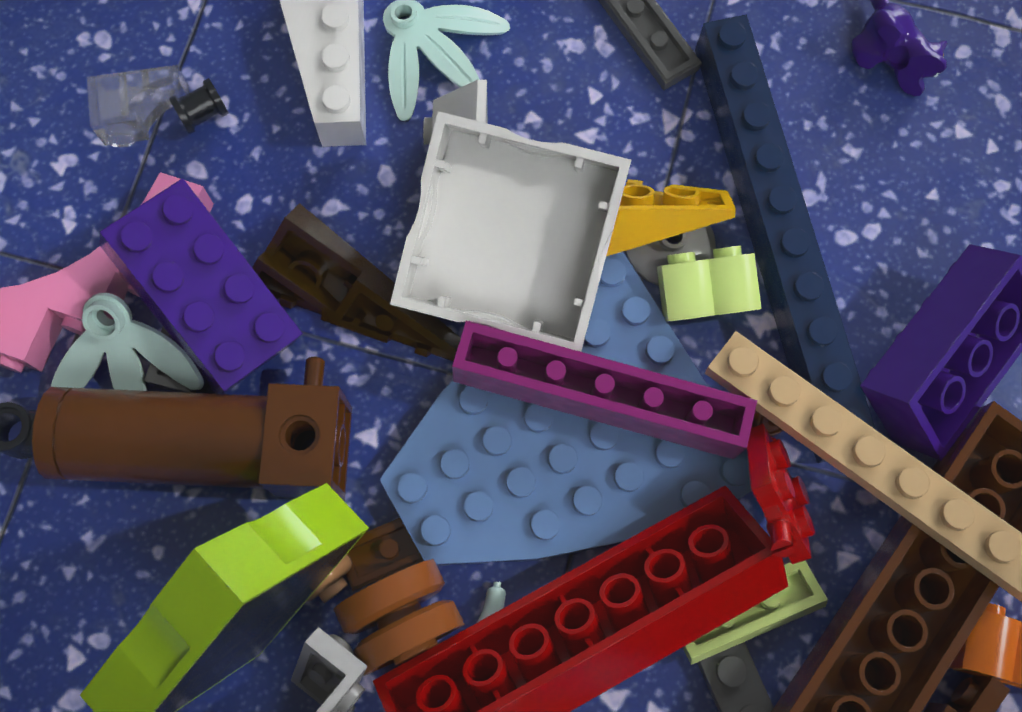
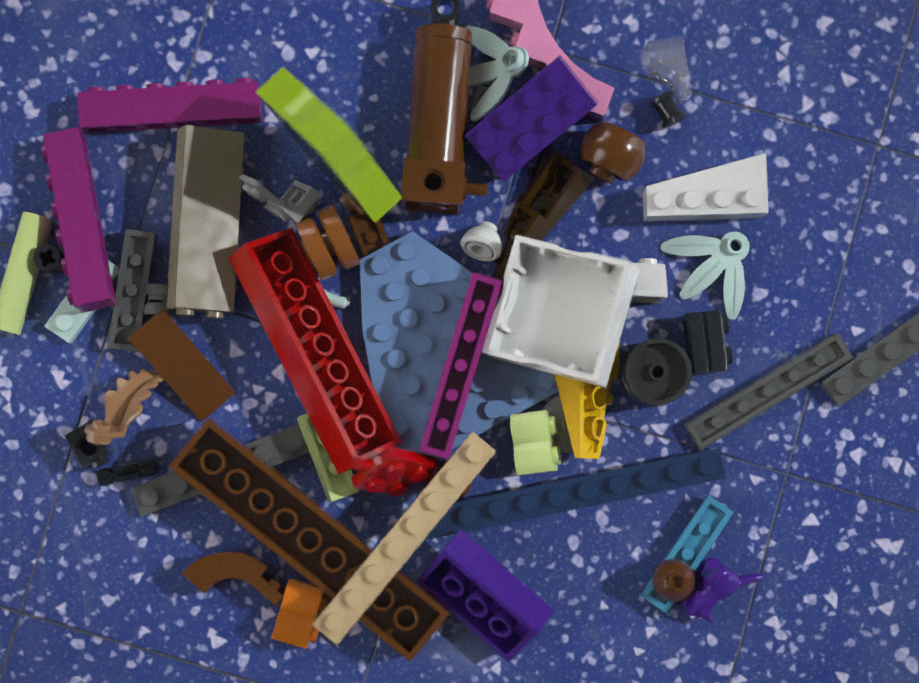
camera: 90 degrees right, 10 degrees up
(259, 174) = (612, 152): none -> reddish brown wheel
(398, 370) = (482, 242): none -> white brick
(546, 52) = (706, 341): none -> black brick
(596, 105) = (664, 356): none -> pearl dark grey wheel
(851, 79) = (693, 542): none -> dark azure plate
(896, 88) = (673, 580): none -> reddish brown brick

